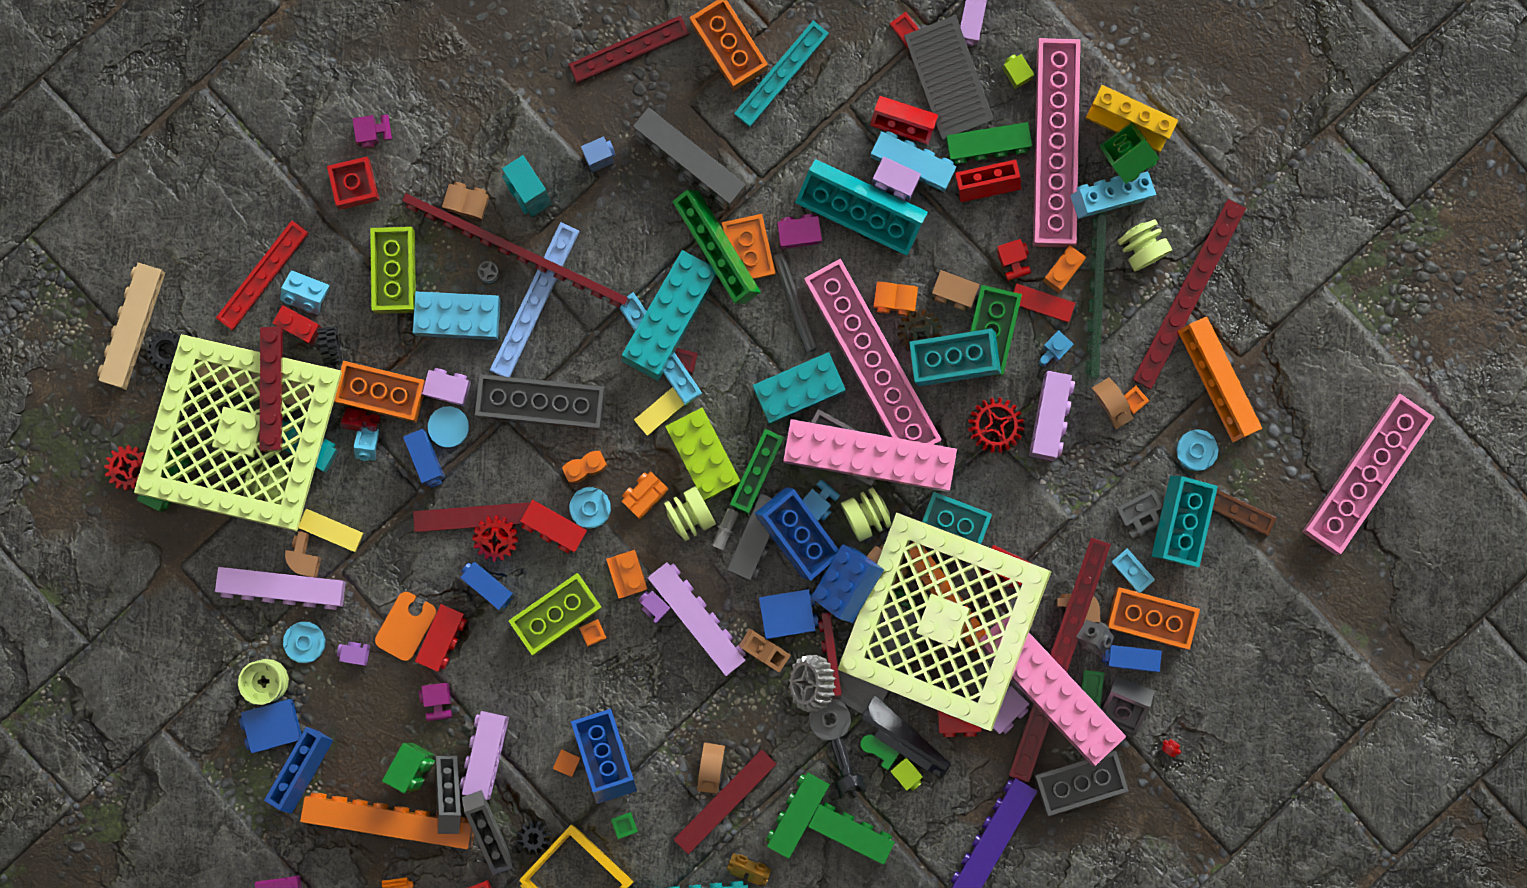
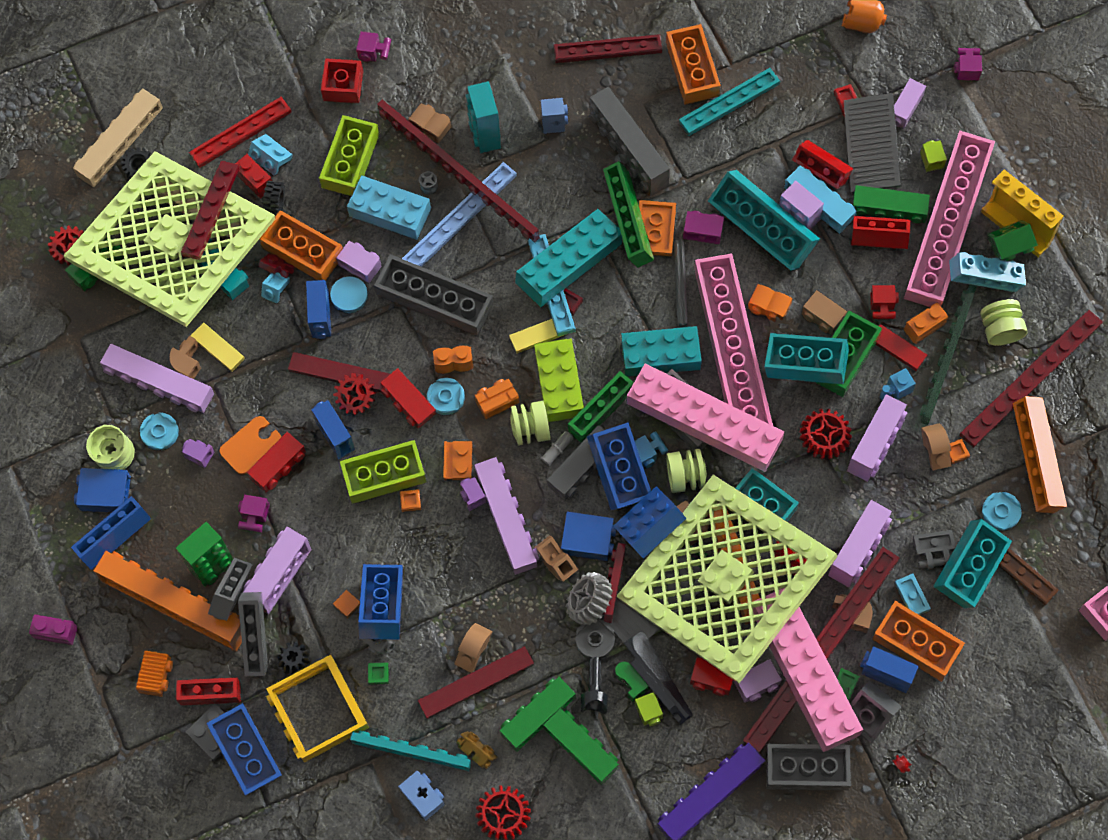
camera: 20 degrees right, 15 degrees down
(1066, 535) = (859, 544): none -> lavender brick
(1095, 637) = (860, 636): dark grey brick -> none

